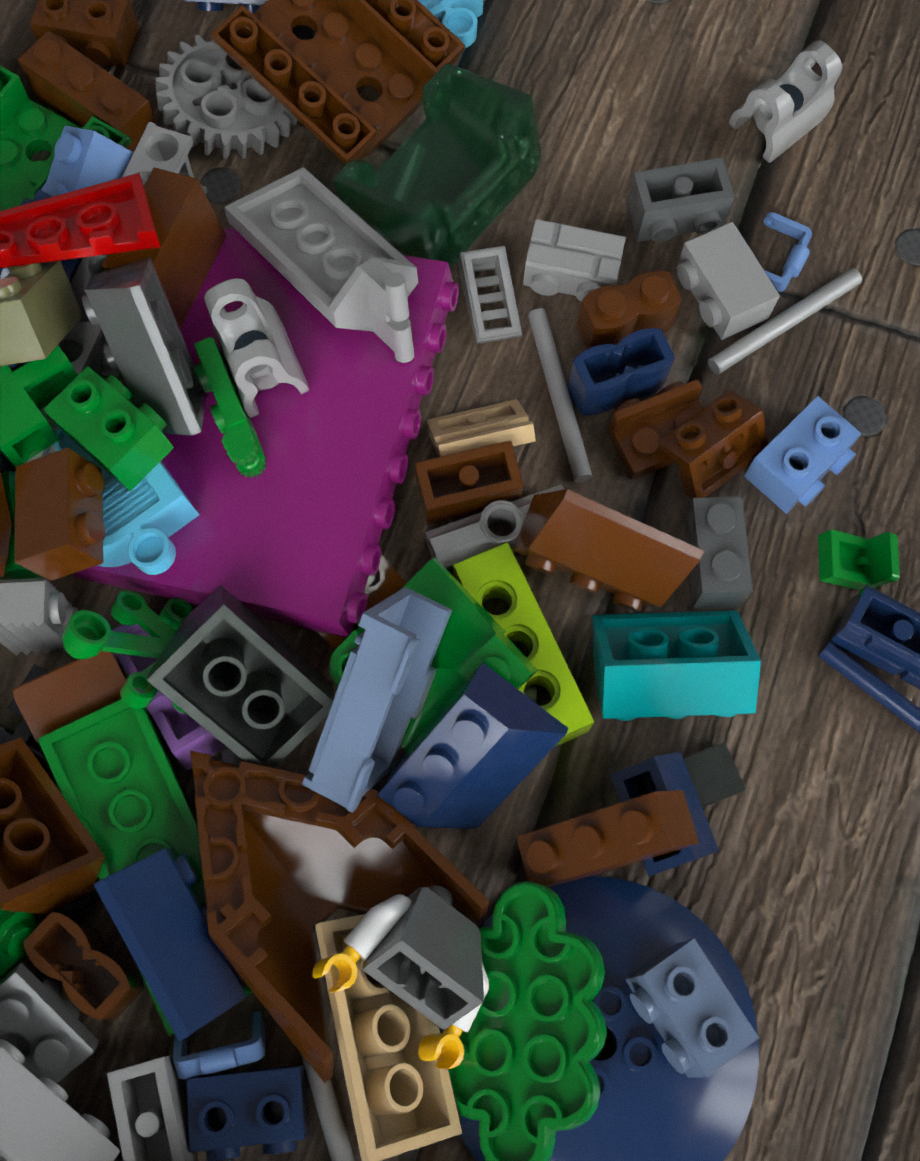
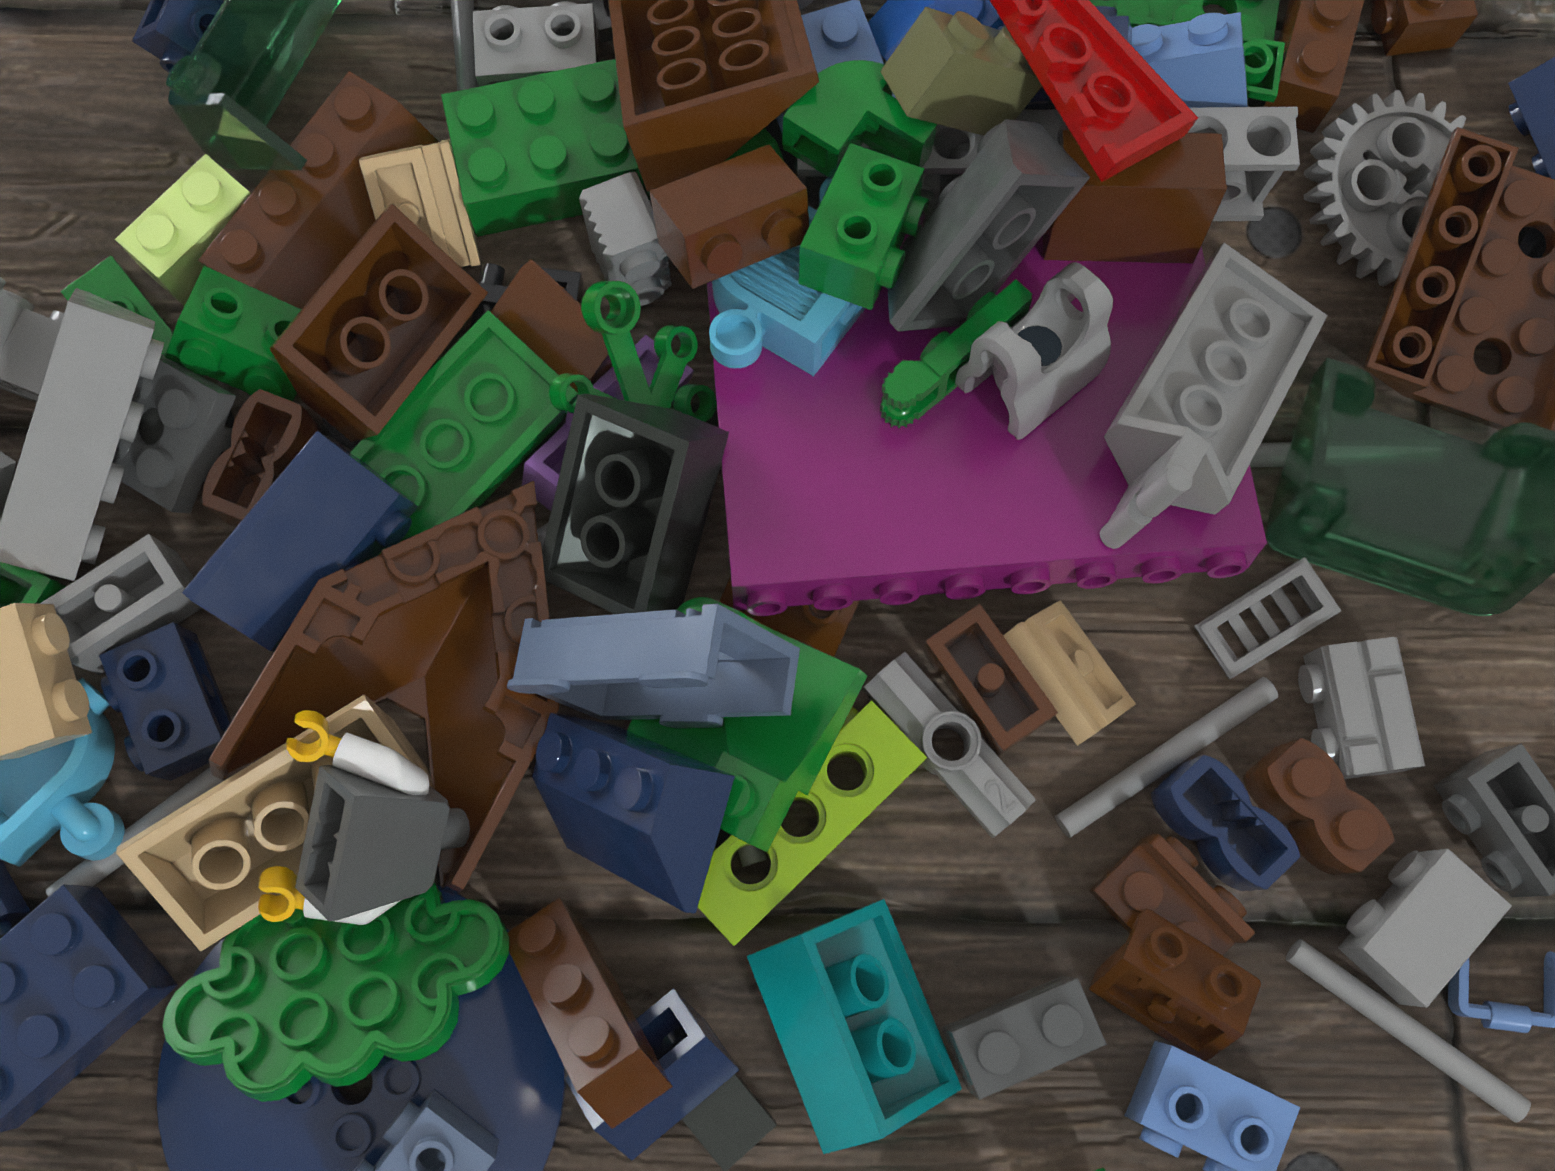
camera: 70 degrees right, 5 degrees up
(221, 1057) = (210, 654): medium blue piece -> none
(604, 549) = (955, 883): reddish brown slope -> none

